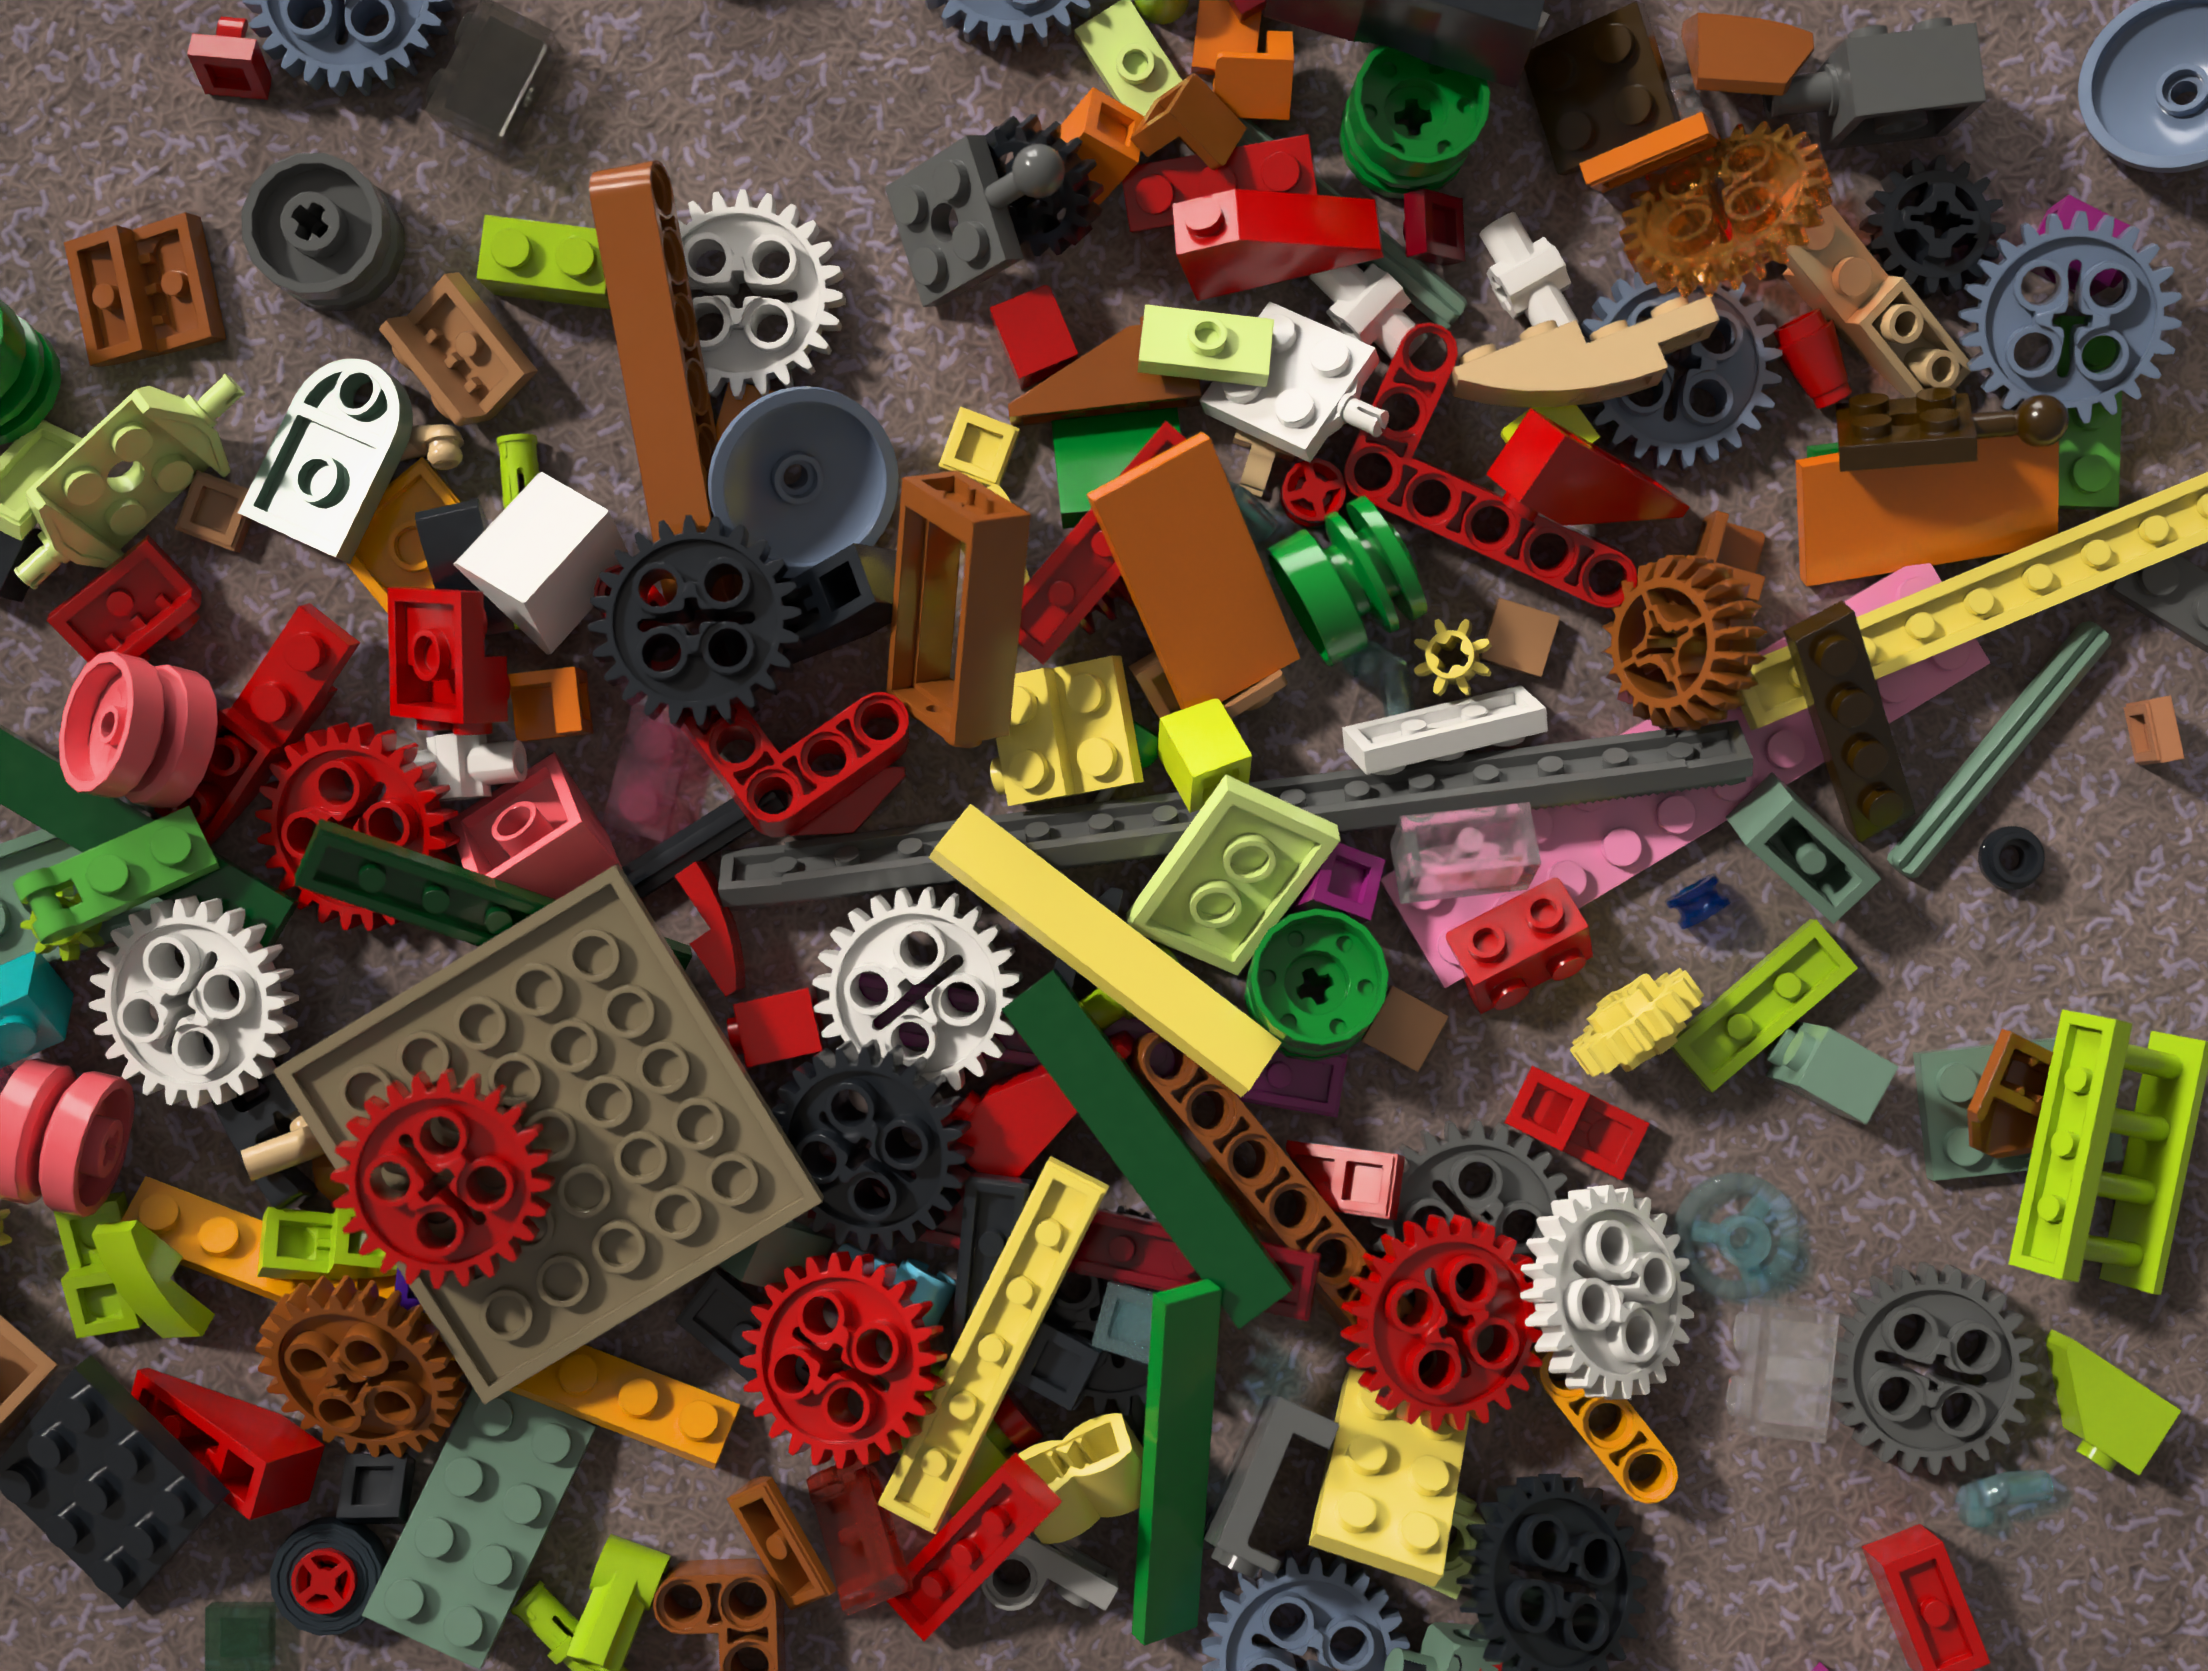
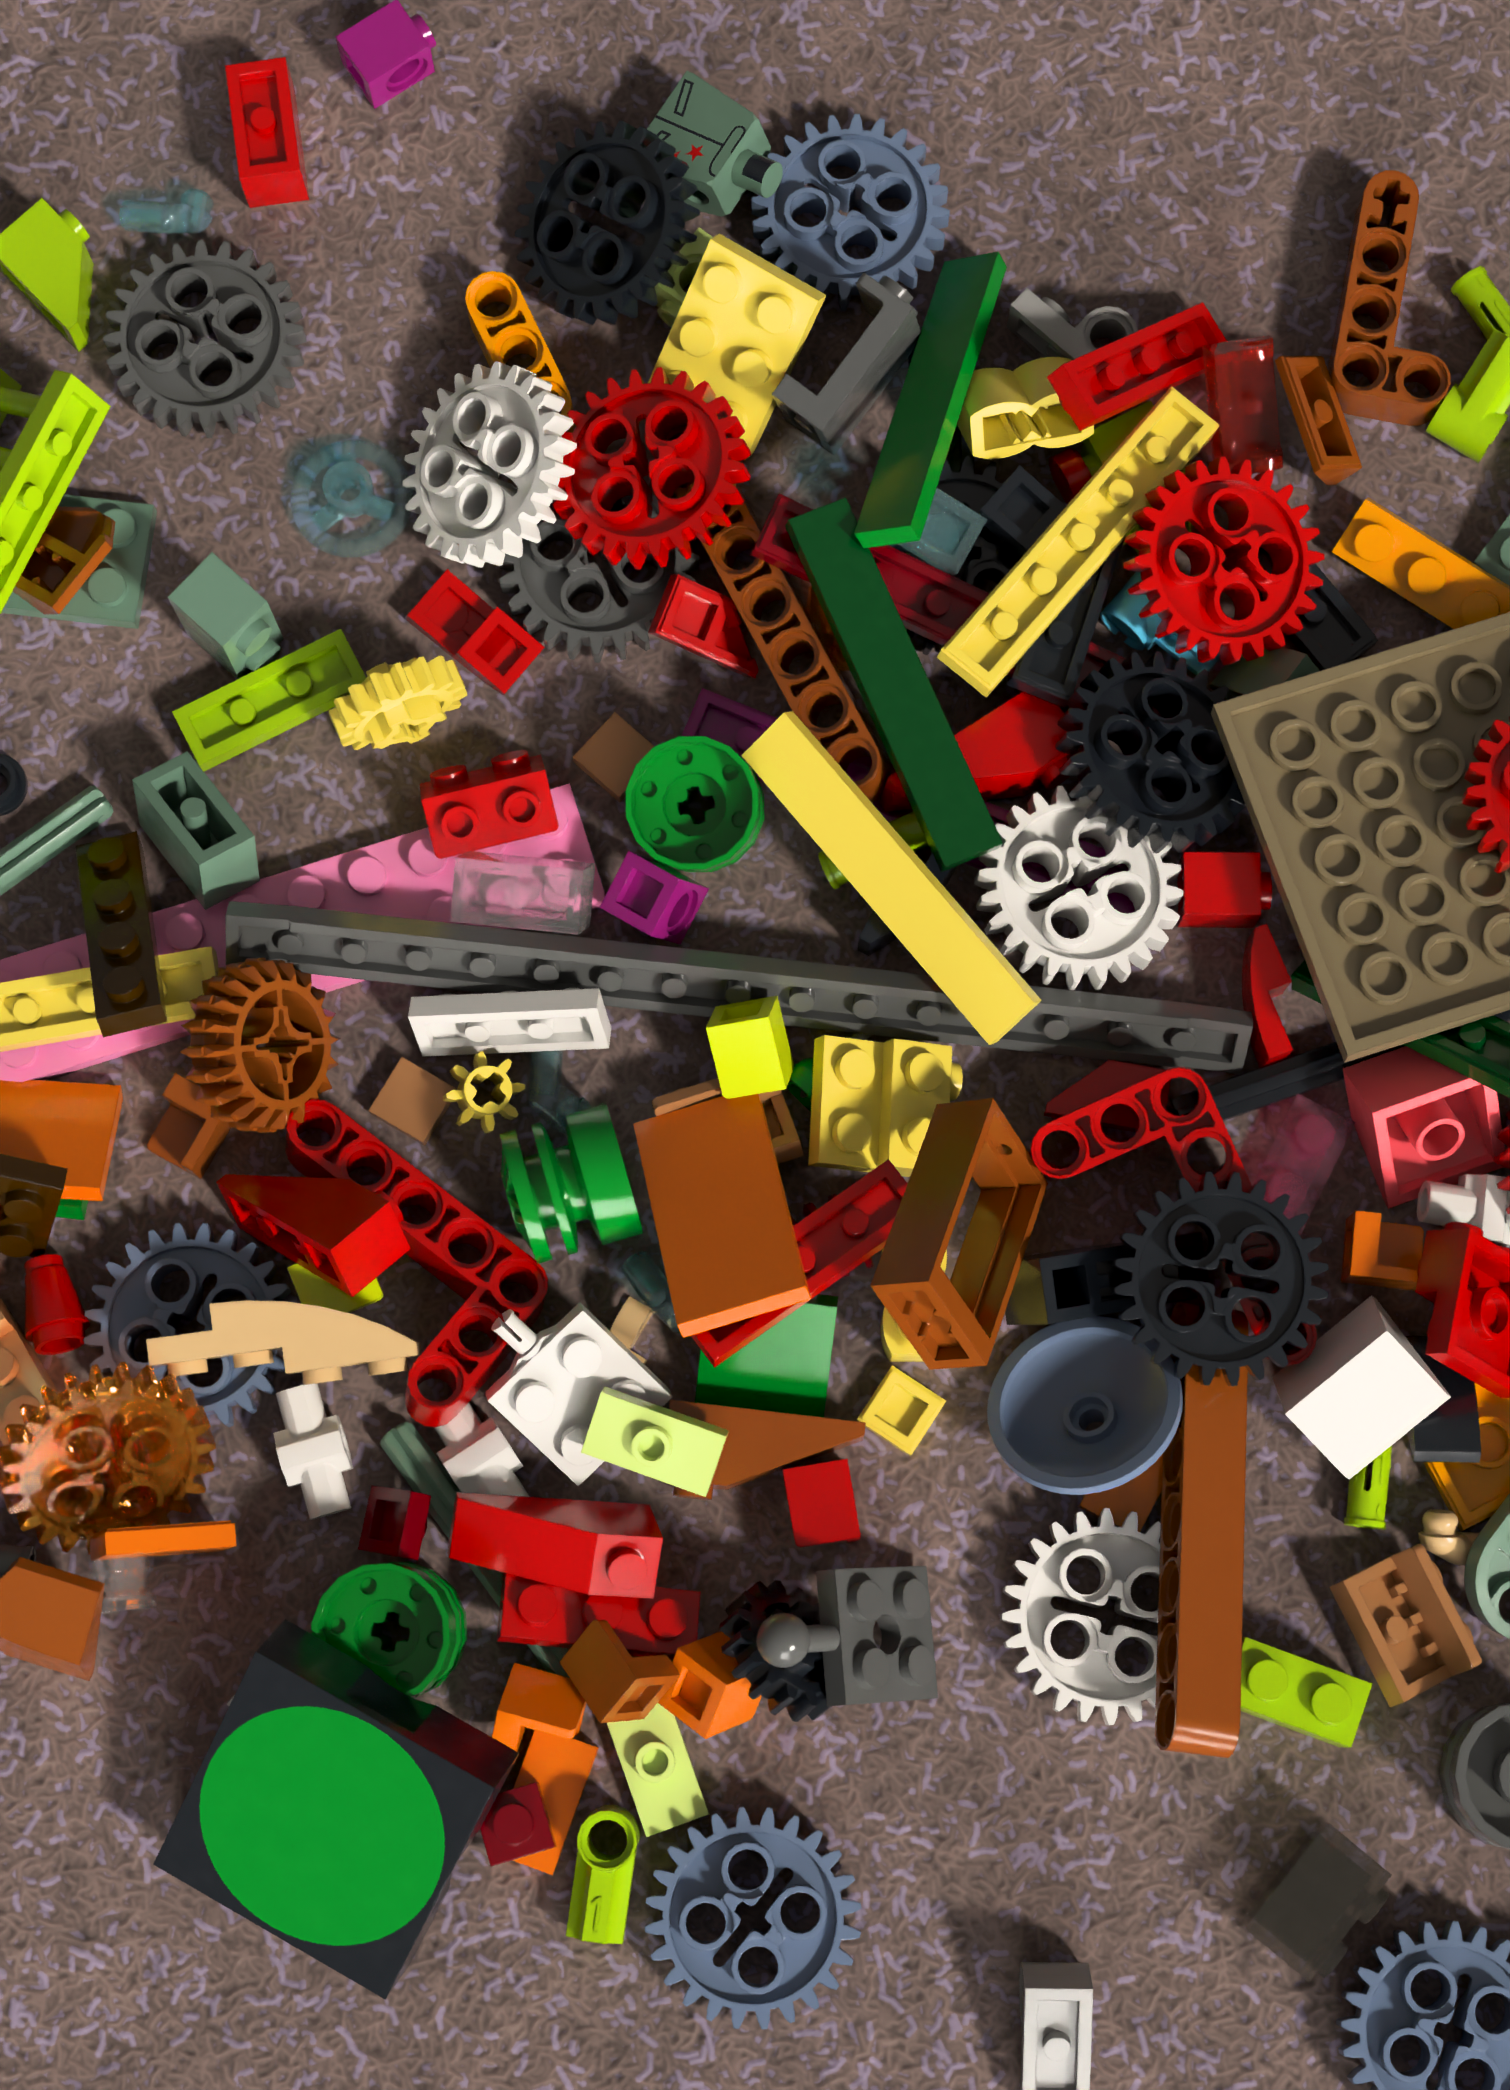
camera: 165 degrees left, 10 degrees down
(1232, 875) = (750, 923): yellowish green plate -> none
(1320, 479) = (580, 1275): red wheel -> none
(1600, 87) = (191, 1619): dark brown plate -> none
(1698, 901) = (306, 809): clear blue bush -> none
(1784, 1369) = (340, 366): clear brick -> none

